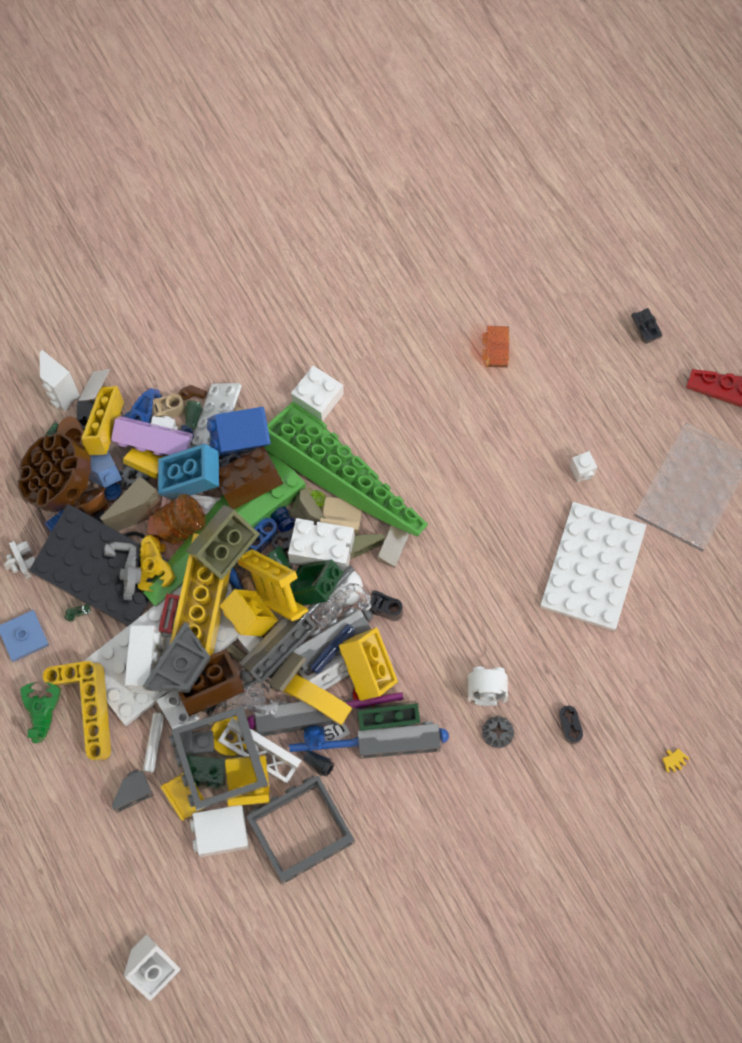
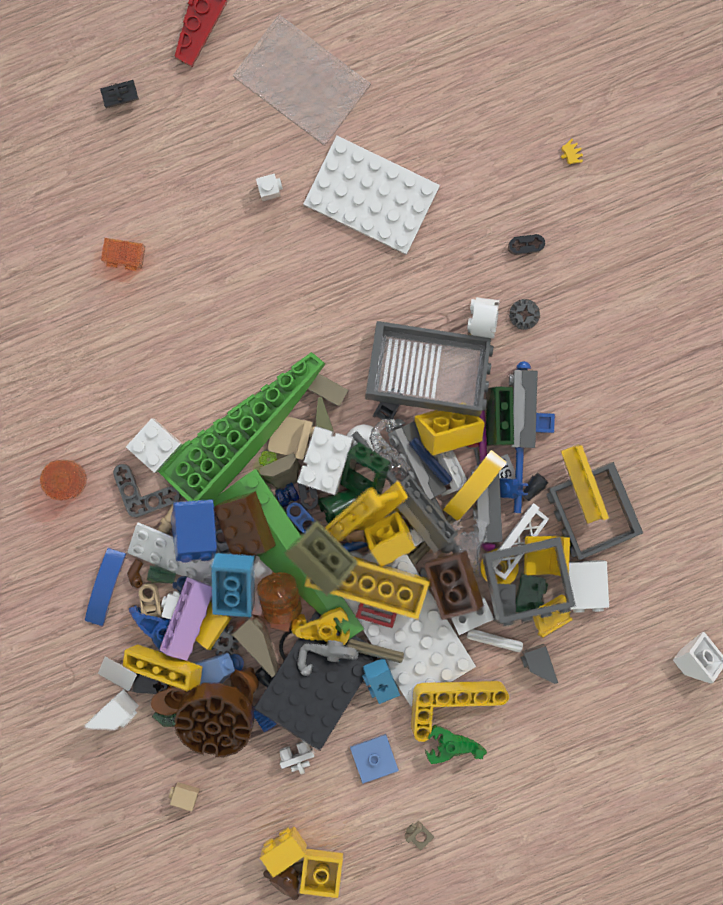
camera: 80 degrees left, 20 degrees up
(78, 611) = (356, 703): clear green arm -> none
(103, 628) = (381, 681): none -> dark azure brick
(134, 614) = (376, 651): none -> dark tan axle
(143, 656) = (423, 643): white piece -> none
(177, 365) = (104, 586): none -> blue slope
(179, 664) = (438, 610): dark grey wing -> none
(264, 385) = (136, 497): none -> dark grey beam
(275, 326) = (74, 479): none -> clear orange wheel
(287, 671) = (450, 507): dark tan slope -> none
(327, 808) = (584, 483): none -> yellow fence
(387, 765) = (545, 422): none -> blue plate
(427, 637) = (429, 369): none -> clear window

